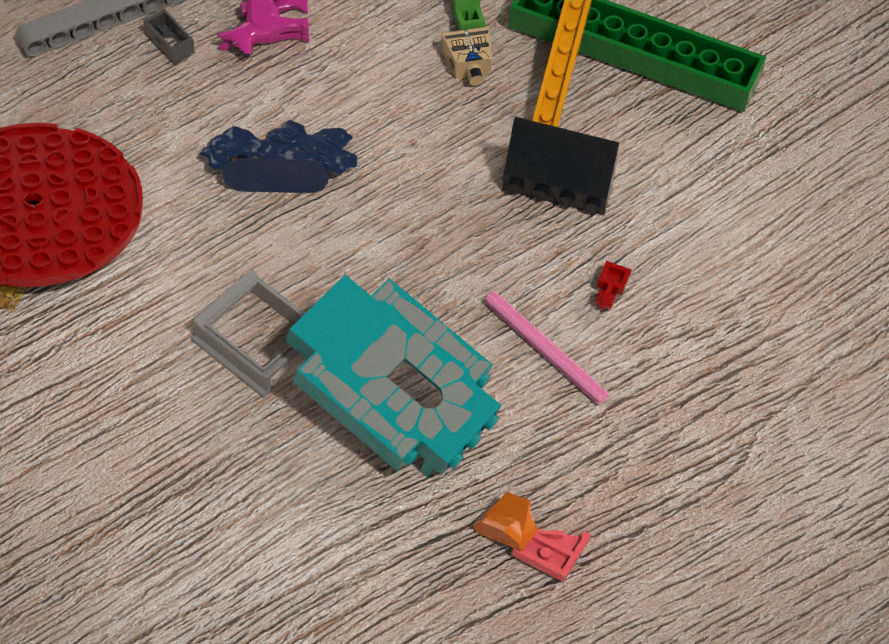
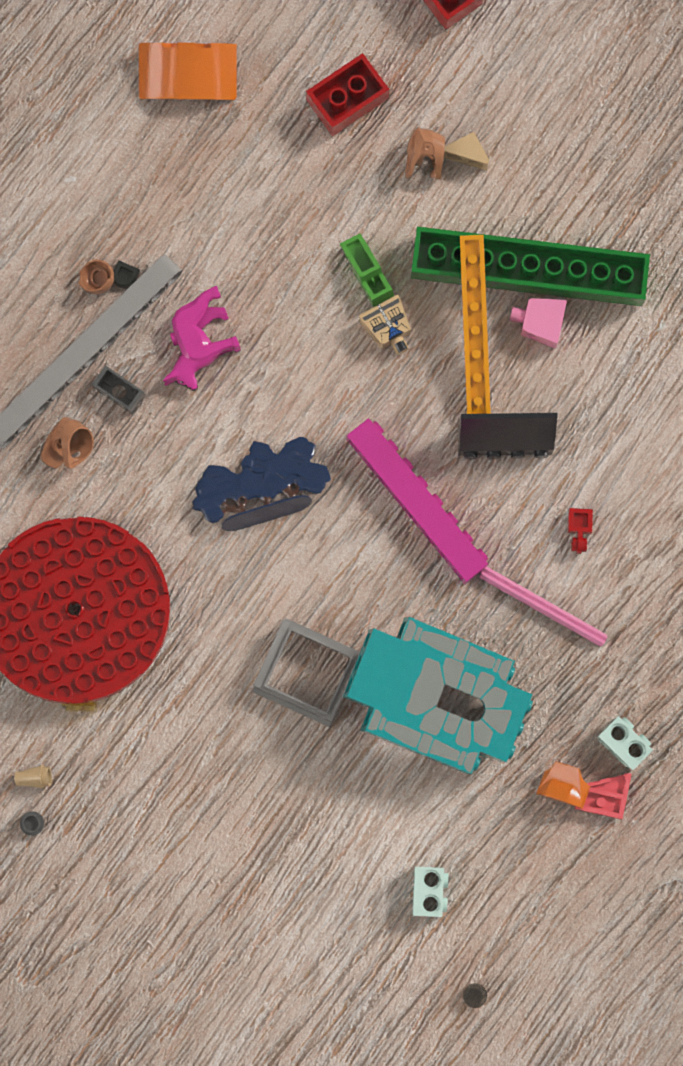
camera: 15 degrees left, 25 degrees up
(93, 61) = (64, 441): none -> nougat helmet
(303, 586) = (422, 891): none -> light aqua brick
(442, 212) = (417, 501): none -> dark pink brick
(587, 504) = (620, 748): none -> light aqua brick
(633, 92) = (541, 320): none -> bright pink torso

